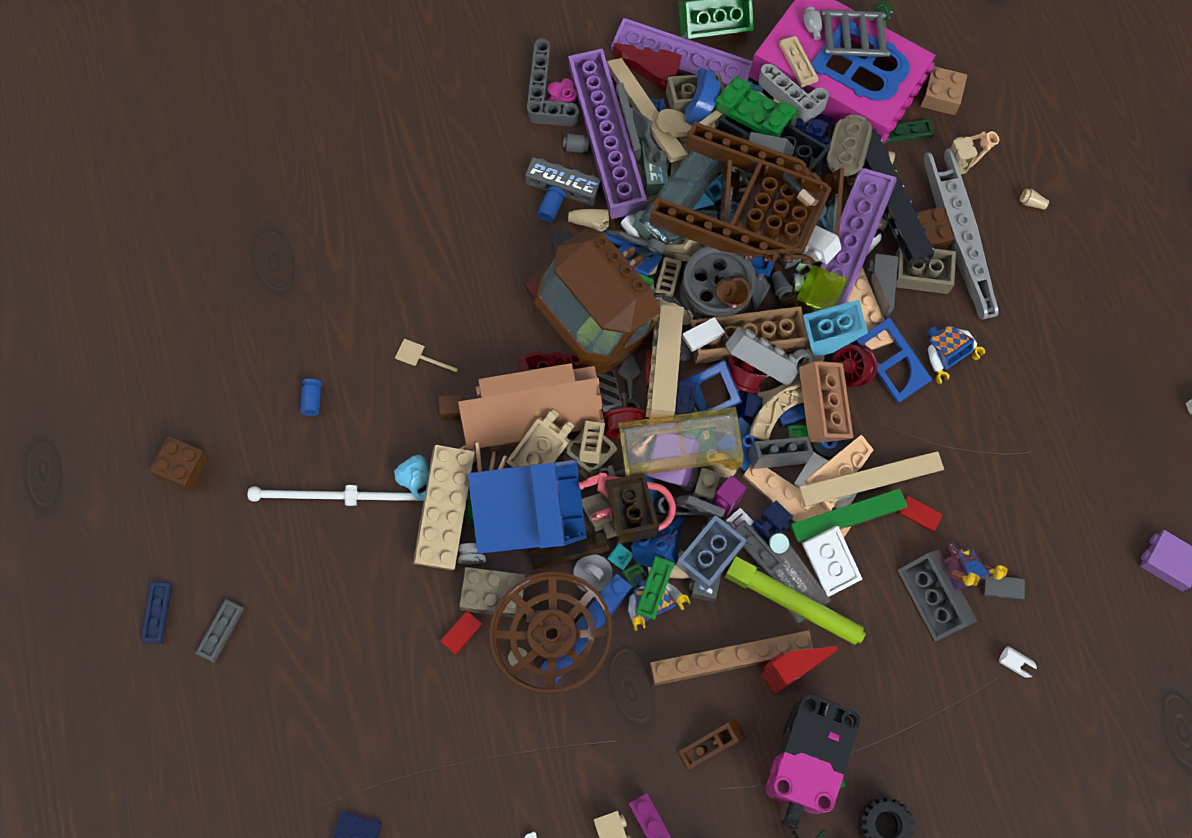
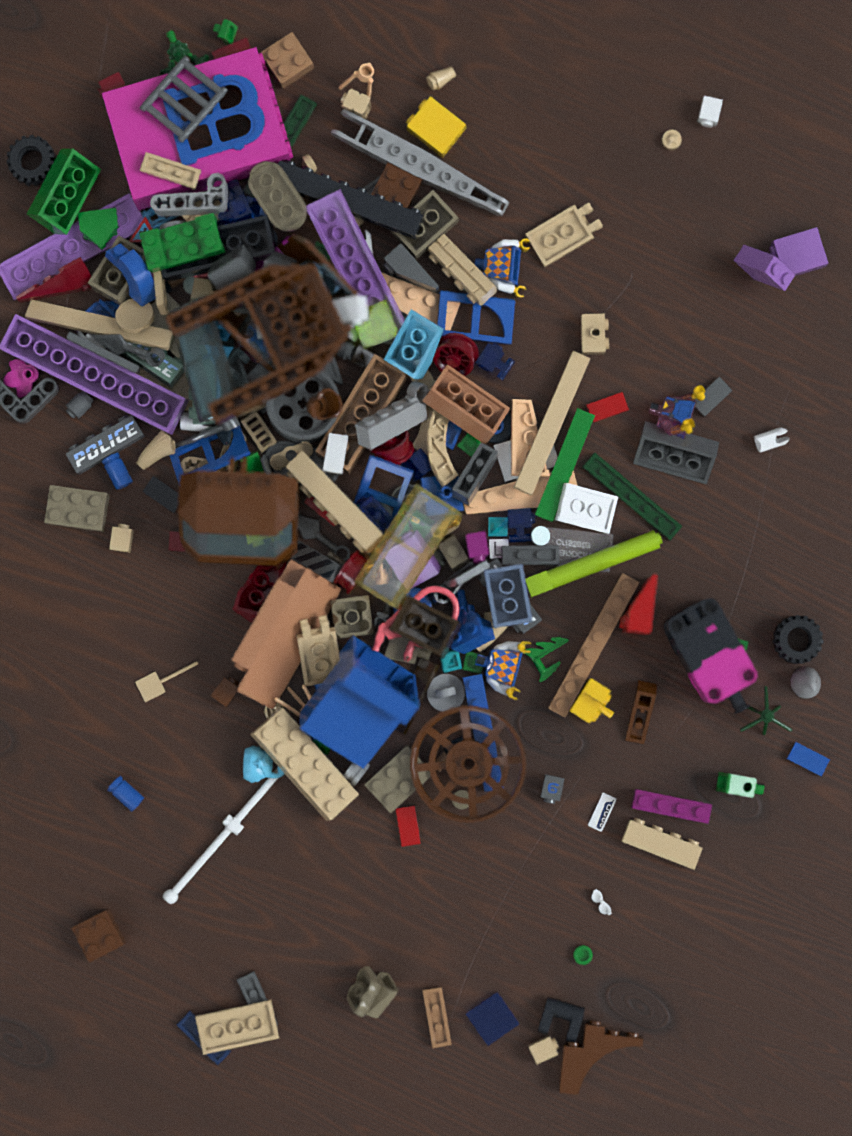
camera: 45 degrees left, 15 degrees up
(185, 630) = (237, 1027): none -> tan tile
(296, 715) = (371, 993): none -> dark tan piece
(319, 789) = (437, 1017): none -> medium nougat plate
(499, 197) = (77, 508): none -> dark tan brick
(504, 244) = (121, 538): none -> tan brick
(587, 453) = (360, 623): tan slope -> none
(588, 723) = (552, 788): none -> dark grey brick
(603, 783) = (602, 812): none -> white sticker
(655, 587) = (498, 659): green tile -> none
(684, 619) = (536, 654): none -> green piece
(685, 693) = (592, 702): none -> yellow brick
(714, 57) = (99, 225): none -> green slope
(755, 507) = (497, 526): none -> teal tile
(803, 196) = (304, 292): piece -> none
(813, 22) = (145, 125): light grey plant -> none
(872, 591) = (632, 496): none -> dark green tile
(875, 397) = (491, 359): none -> clear blue brick
(918, 321) = (462, 270): none -> tan brick
(924, 38) = (226, 31): none -> green tile
(964, 455) = (593, 334): none -> tan brick
(998, 223) = (435, 126): none -> yellow brick
(1013, 374) = (563, 234): none -> tan tile
(1141, 538) = (764, 267): none -> medium lavender brick
(1155, 395) = (671, 140): none -> tan tile

